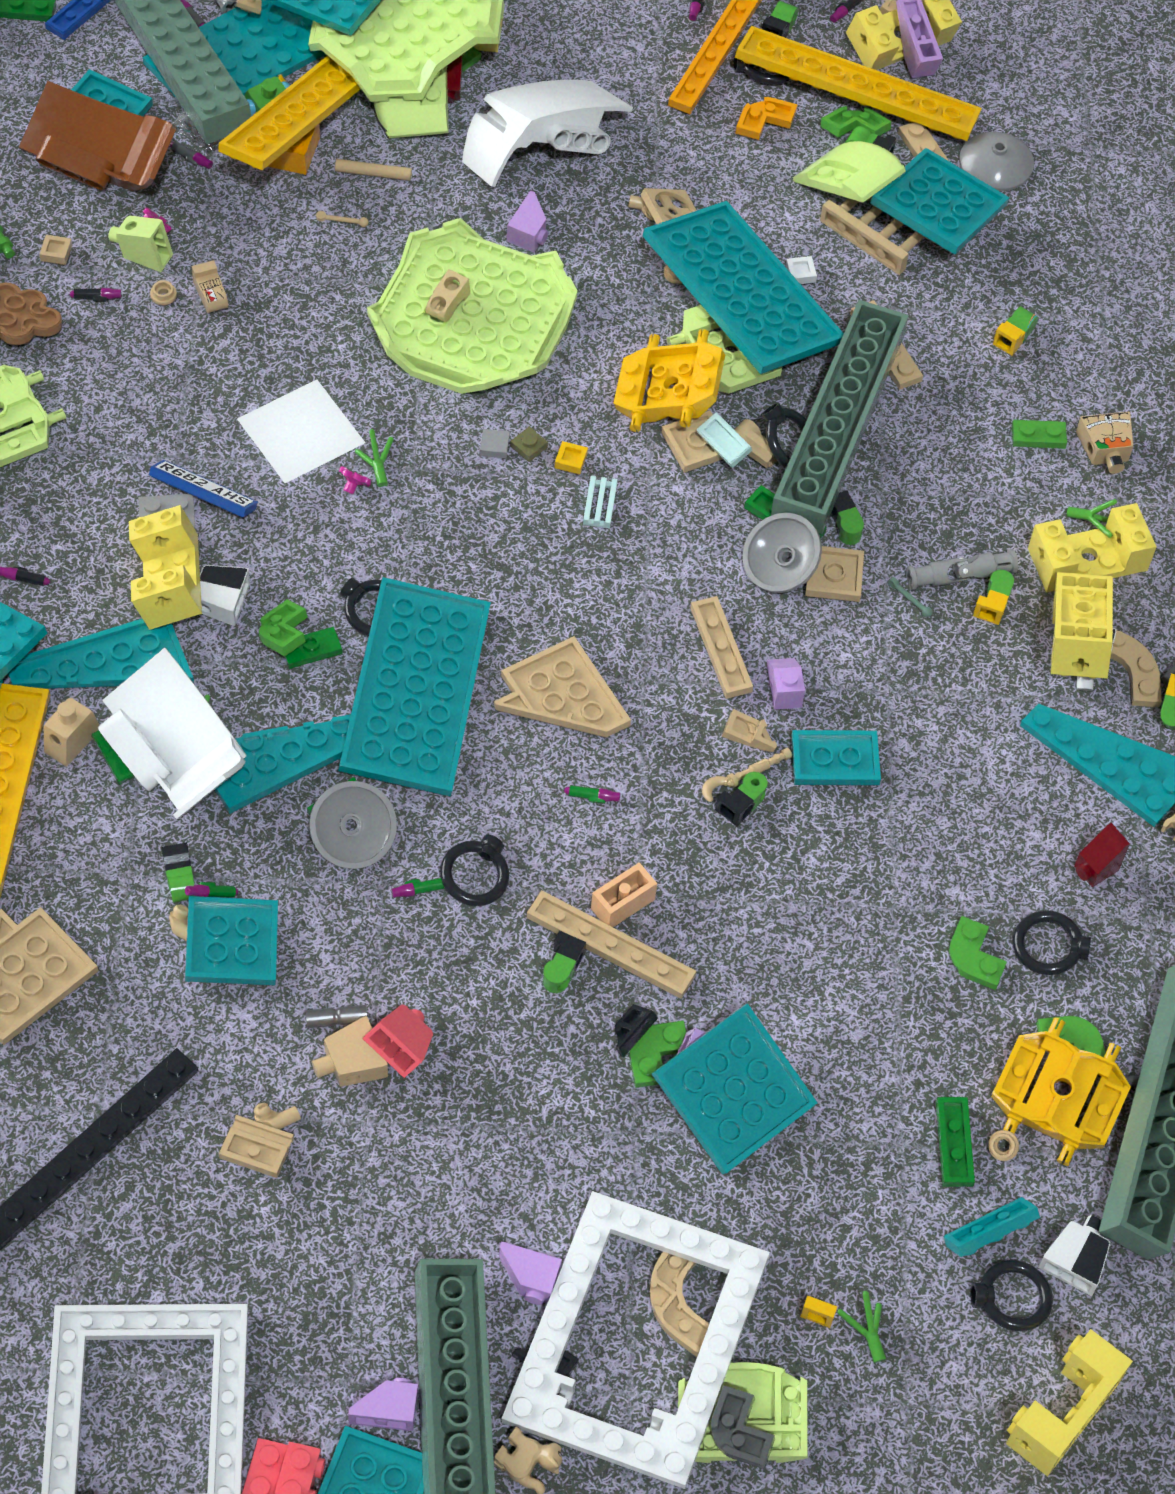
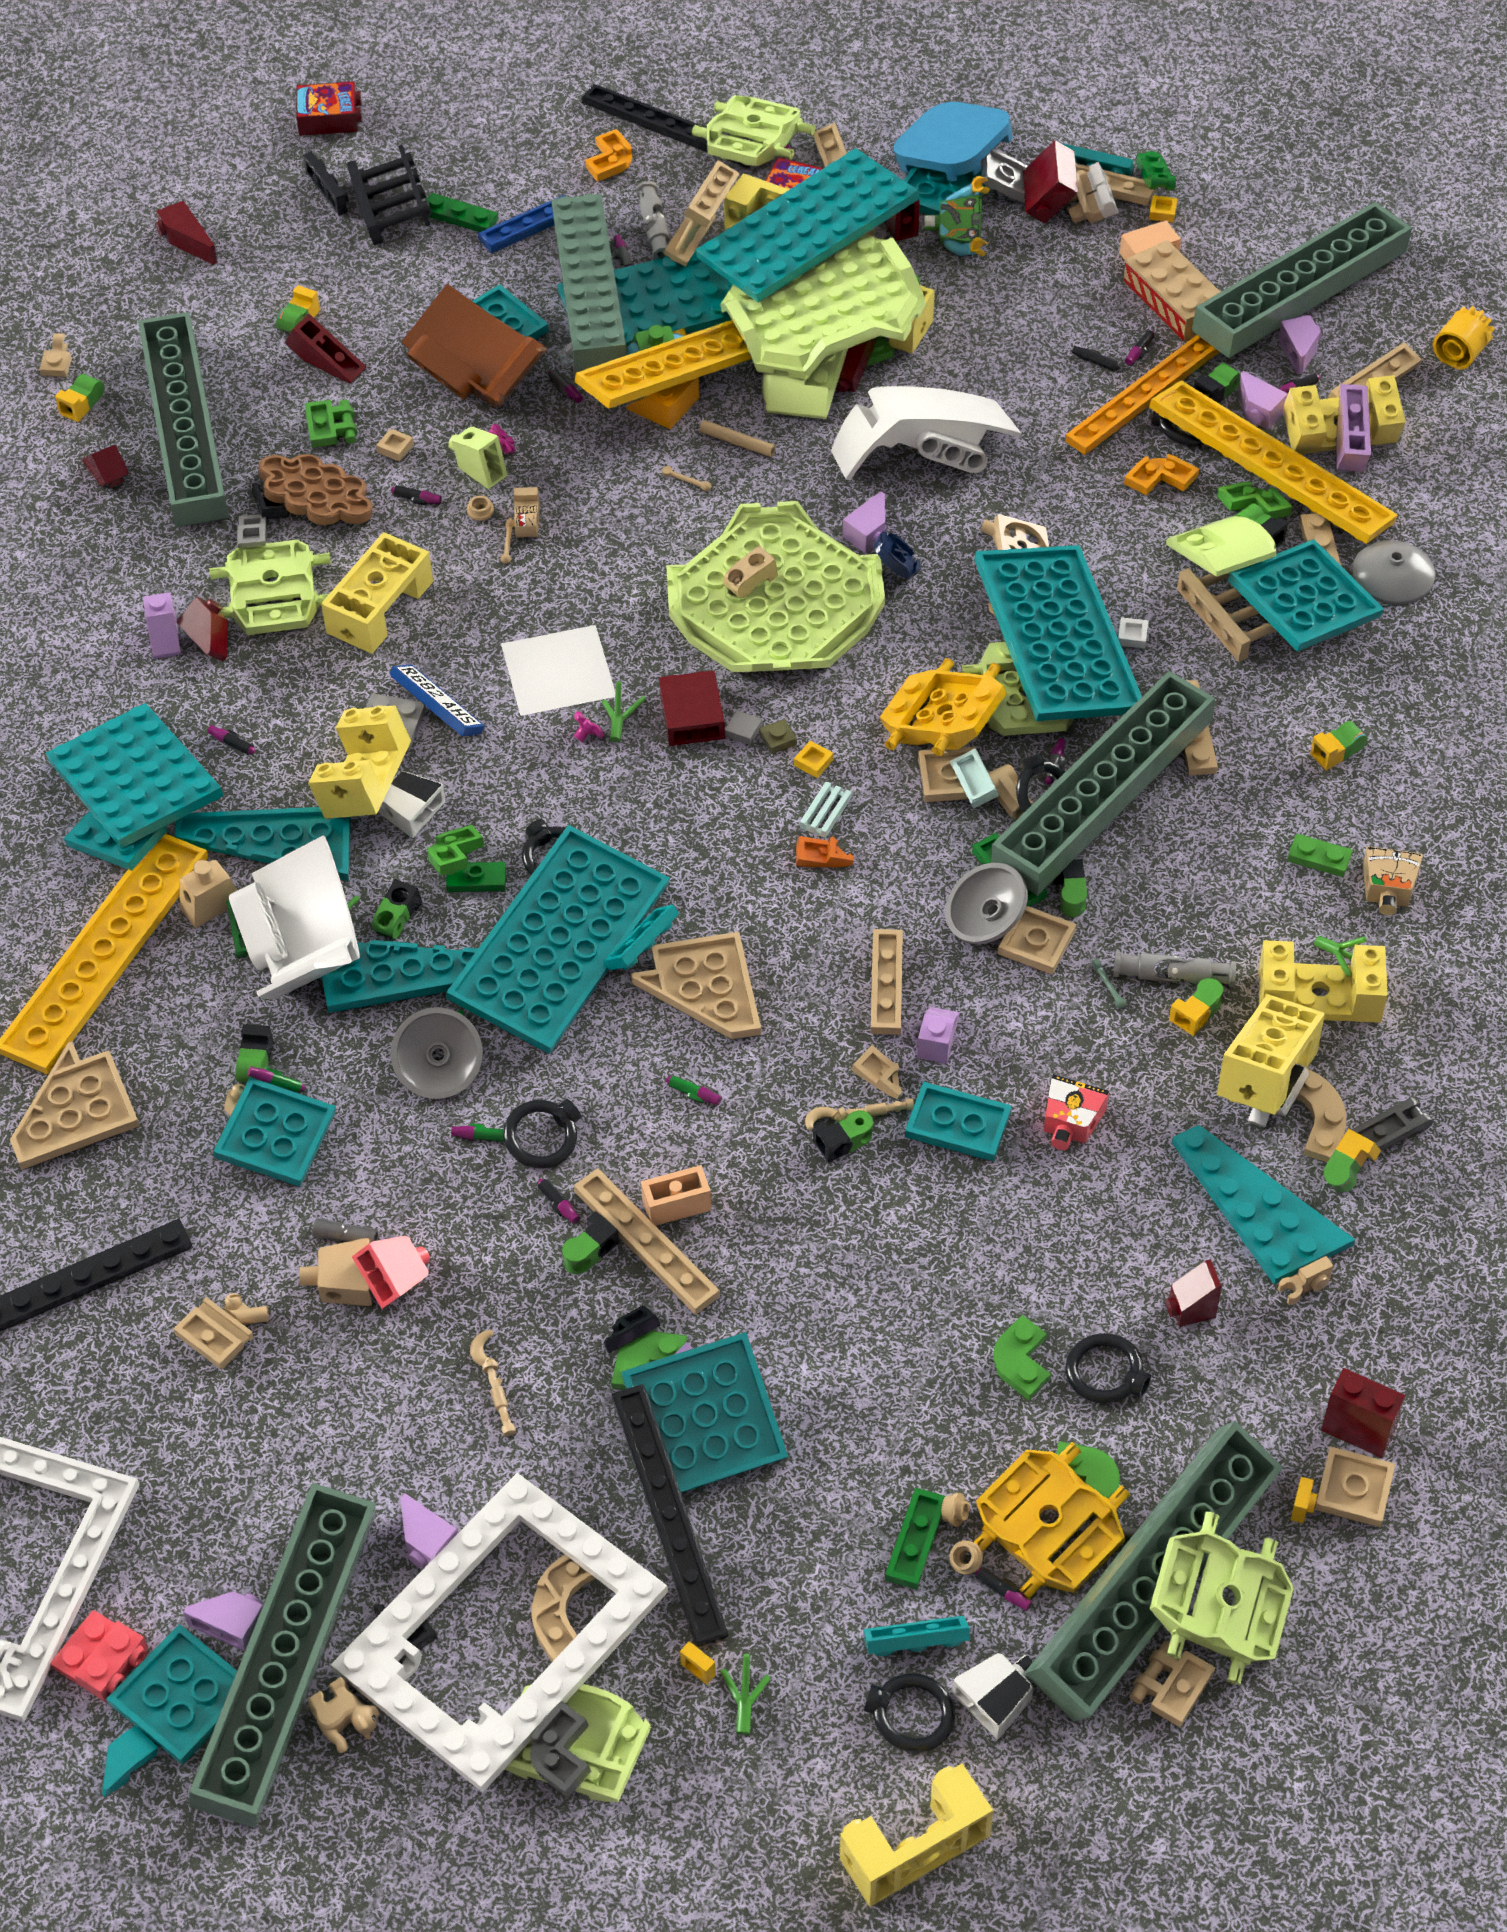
camera: 25 degrees right, 5 degrees down
(95, 417) = (358, 607): none -> light yellow plate
(197, 301) = (506, 558): none -> tan hinge
(253, 698) = (396, 909): none -> leg
(442, 437) = (691, 708): none -> dark red brick
(491, 665) = (642, 938): none -> teal plate
(515, 931) = (557, 1201): none -> piece
(521, 1100) = (491, 1366): none -> tan piece
(567, 247) = (896, 555): none -> dark blue tile
(613, 544) = (821, 853): none -> orange slope
(663, 20) = (1095, 357): none -> black piece
(743, 1187) = (669, 1515): none -> black tile
(780, 396) = (1057, 756): none -> piece
(822, 28) = (1260, 400): none -> lavender slope
(928, 721) = (1073, 1111): none -> torso
(978, 1105) = (955, 1509): none -> tan plate
(1045, 1162) = (1004, 1587): none -> black piece

